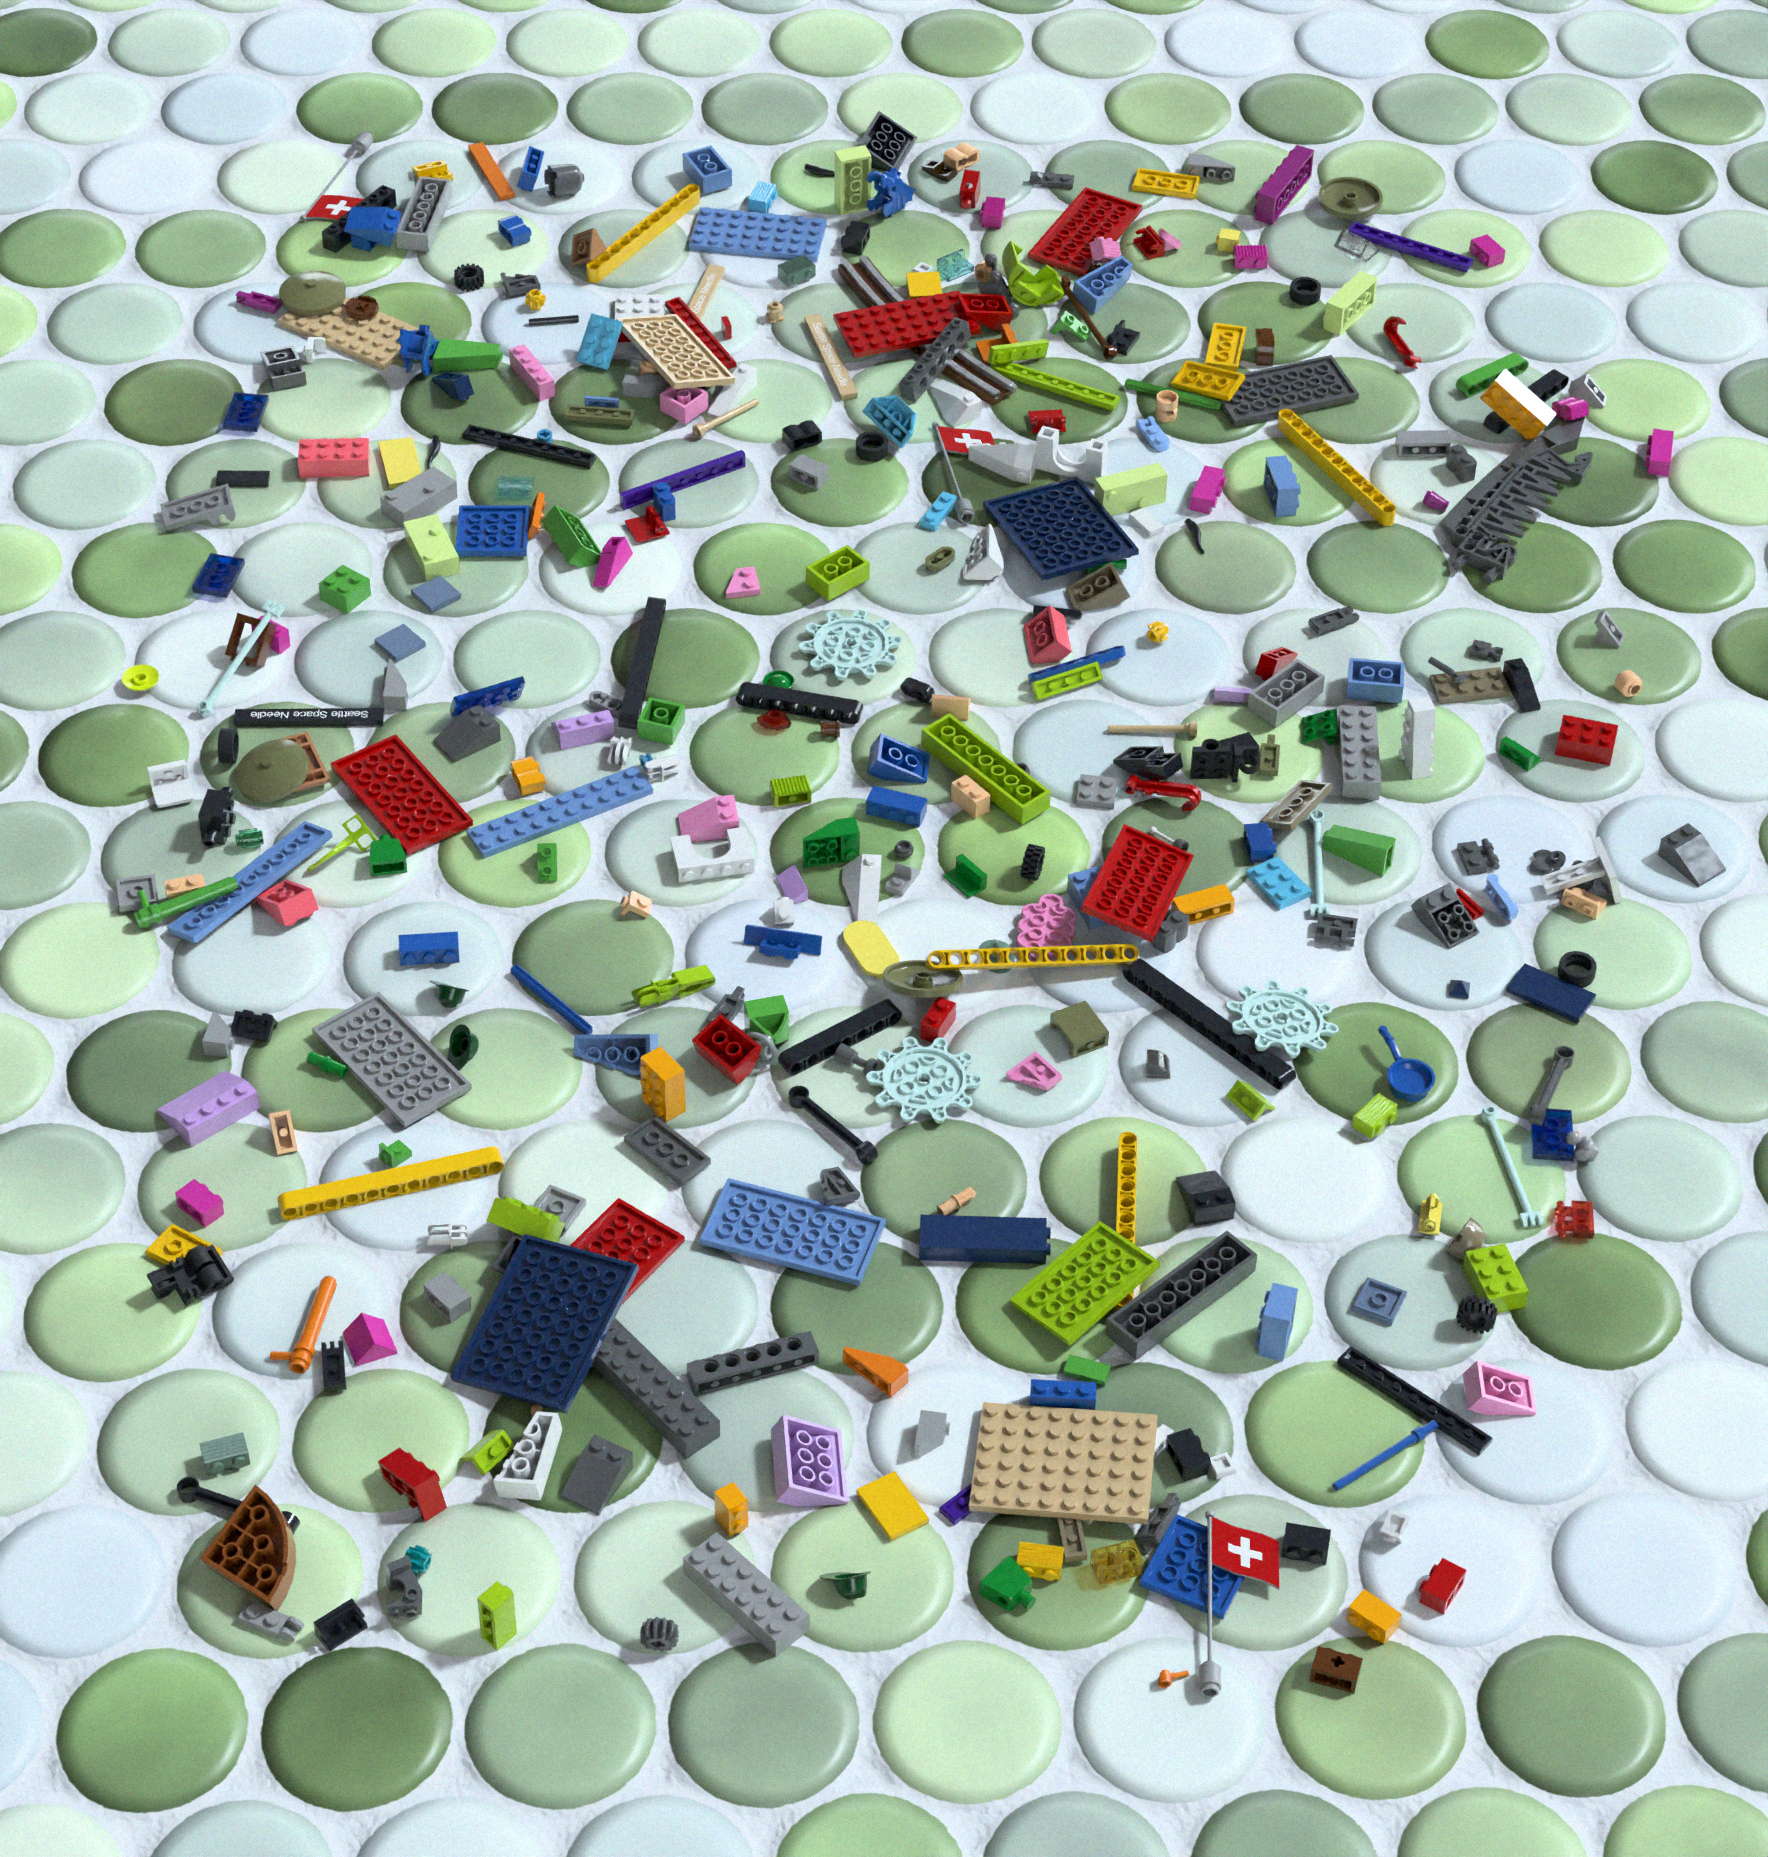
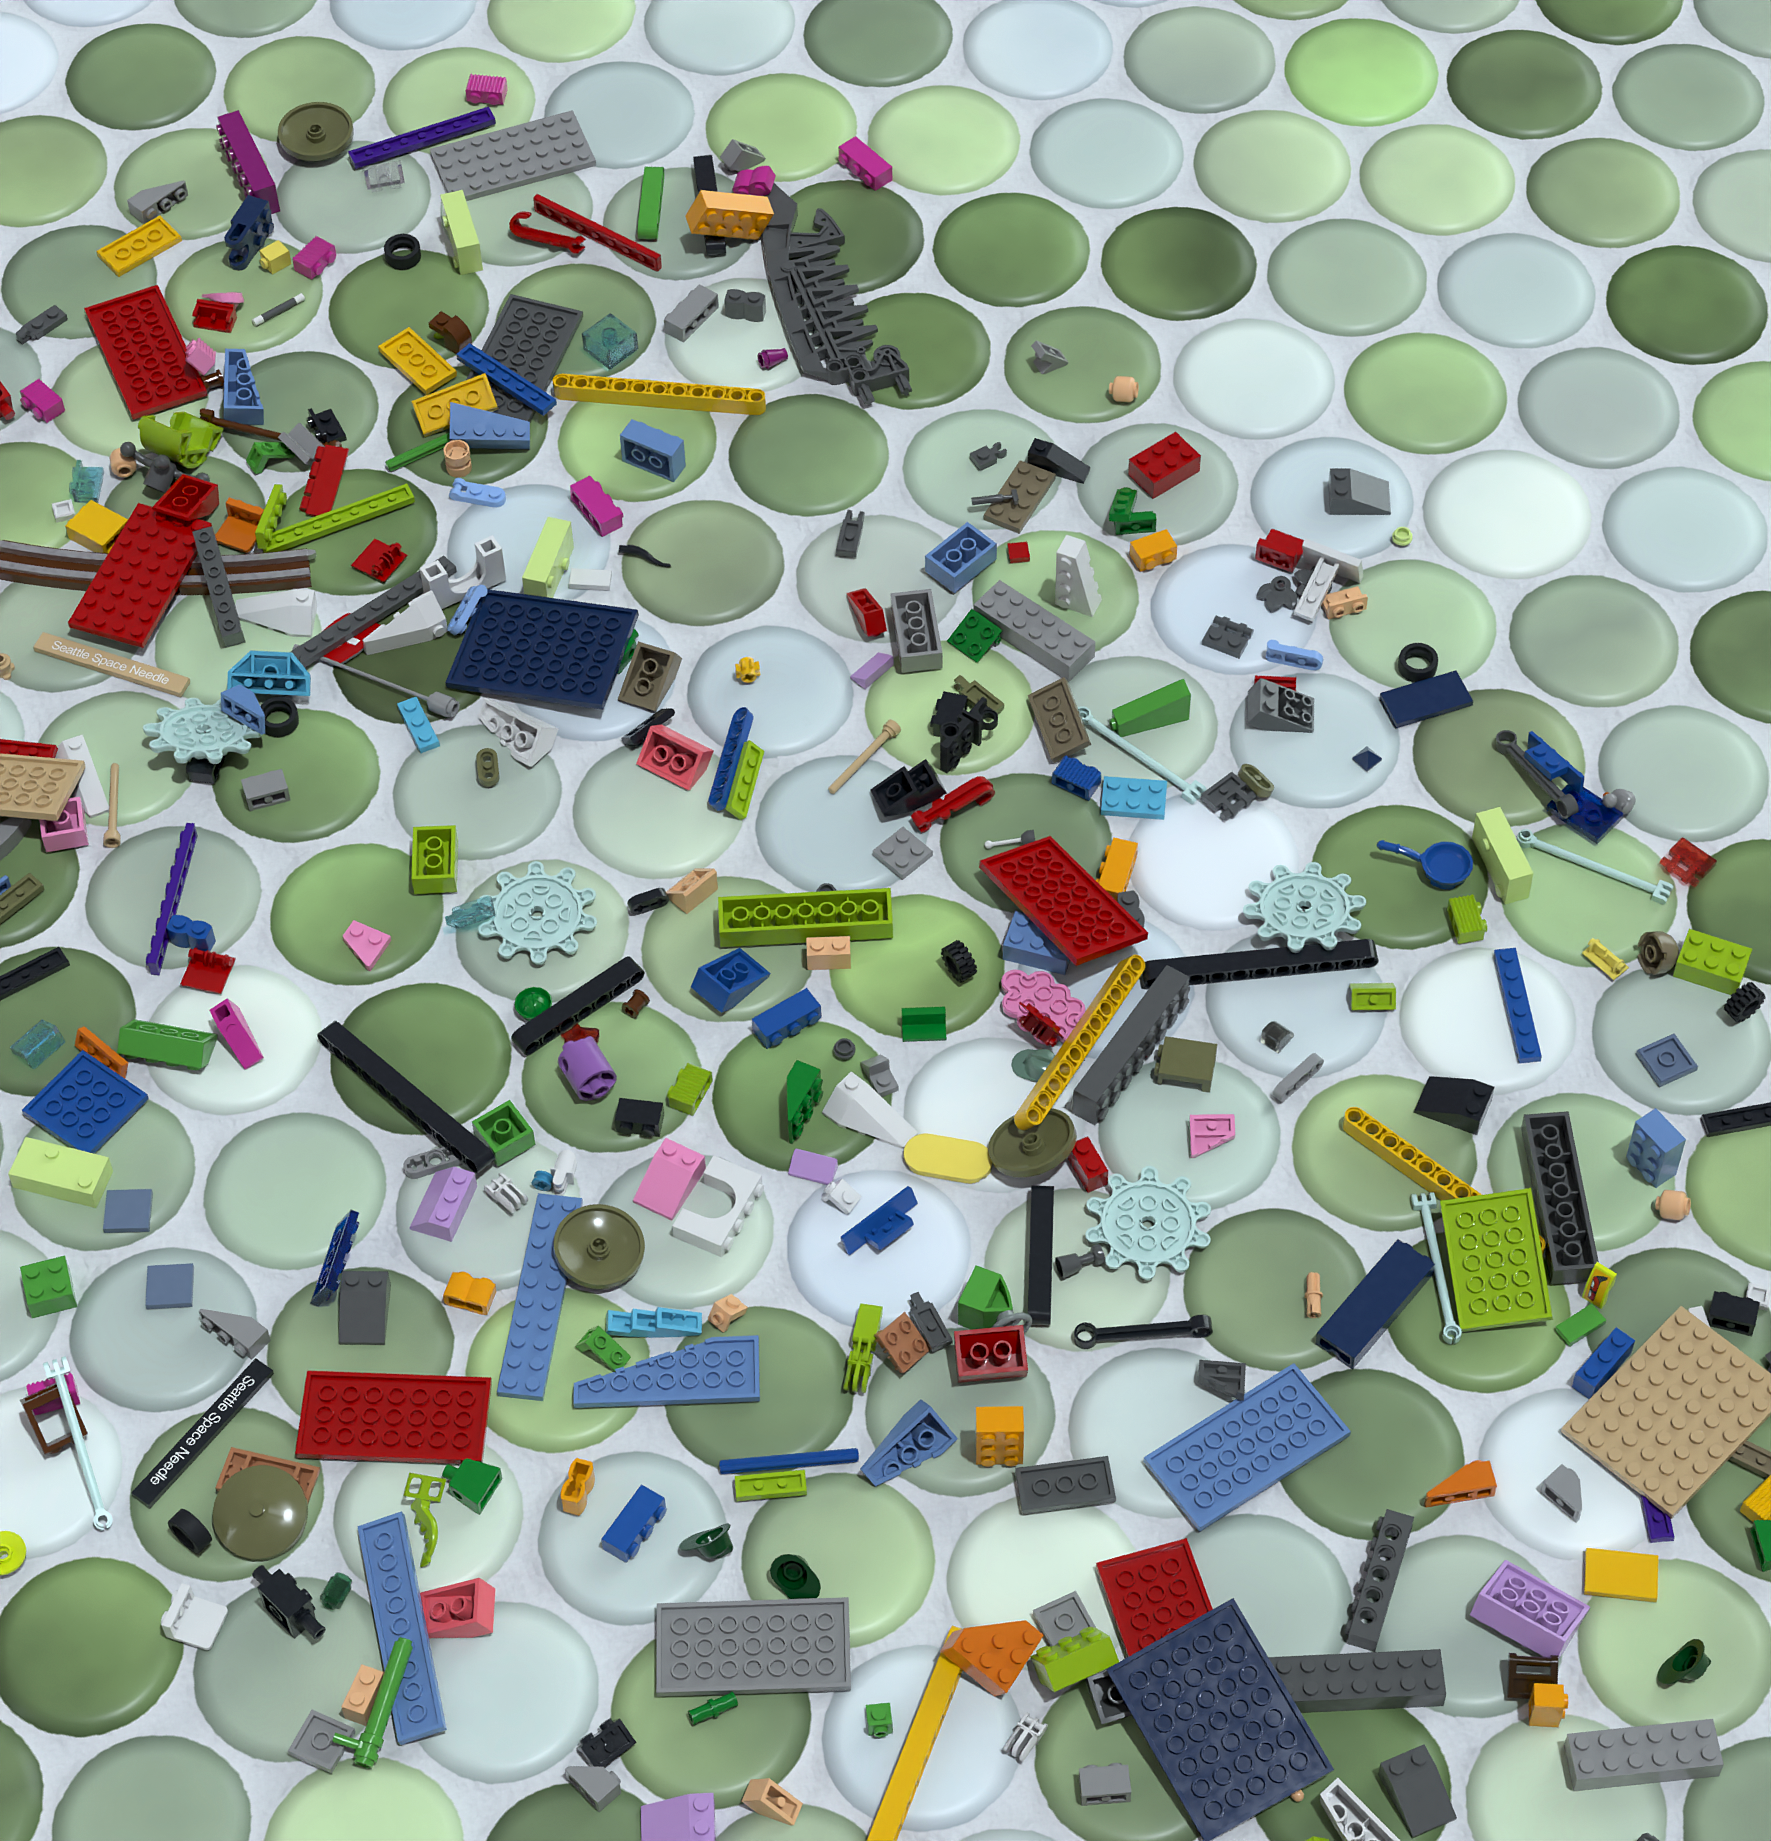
camera: 50 degrees left, 10 degrees up
(428, 903) = (578, 1486): none -> light orange brick
(492, 1174) = (993, 1652): none -> orange brick
(522, 1000) = (770, 1485): none -> lime plate
(573, 919) = (702, 1373): none -> medium blue wing
(591, 875) = (654, 1324): none -> medium azure slope
(620, 813) = (599, 1246): none -> olive dish
(694, 1001) = (902, 1343): none -> nougat hinge
(742, 779) = (639, 1117): none -> black brick
(750, 730) = (586, 1068): none -> medium lavender cylinder
(755, 1504) = (1521, 1684): none -> dark brown plate
(812, 612) = (471, 913): none -> clear light blue bracket
(817, 416) = (184, 732): none -> light aqua plate
(856, 421) = (244, 707): none -> medium blue slope
(978, 436) = (365, 617): none -> dark grey plate
(1003, 1295) = (1425, 1206): none -> light aqua hinge
(1022, 927) = (1042, 1026): none -> red hinge
(1050, 477) = (466, 609): none -> light blue plate
(1058, 986) = (1131, 1045): none -> dark grey brick
(1082, 360) = (324, 481): none -> red windscreen
(1092, 334) = (301, 443): none -> light grey panel
(1120, 1089) = (1298, 1077): none -> light grey beam
(1125, 1355) = (1599, 1285): none -> slope
(1178, 265) = (278, 309): none -> dark grey bar
(1202, 403) = (487, 429): none -> medium blue wedge
(1230, 212) = (248, 231): none -> dark blue brick
(1248, 1368) = (1673, 1204): none -> light nougat head
(1255, 389) = (506, 379): none -> blue plate
(1332, 1188) = (1517, 1005): none -> blue plate
(1348, 418) = (610, 341): none -> clear light blue brick
(1365, 936) = (1256, 780): none -> olive plate
(1434, 365) = (597, 232): none -> red tile
(1449, 295) = (513, 156): none -> light grey plate
(1450, 1102) = (1502, 855): none -> yellowish green brick
(1504, 775) = (1153, 550): none -> light orange brick
(1521, 735) = (1123, 505): none -> green plate
(1567, 1084) = (1551, 763): none -> blue bracket
(1582, 841) = (1280, 550): none -> red bracket
(1683, 901) = (1402, 536): none -> yellowish green plate

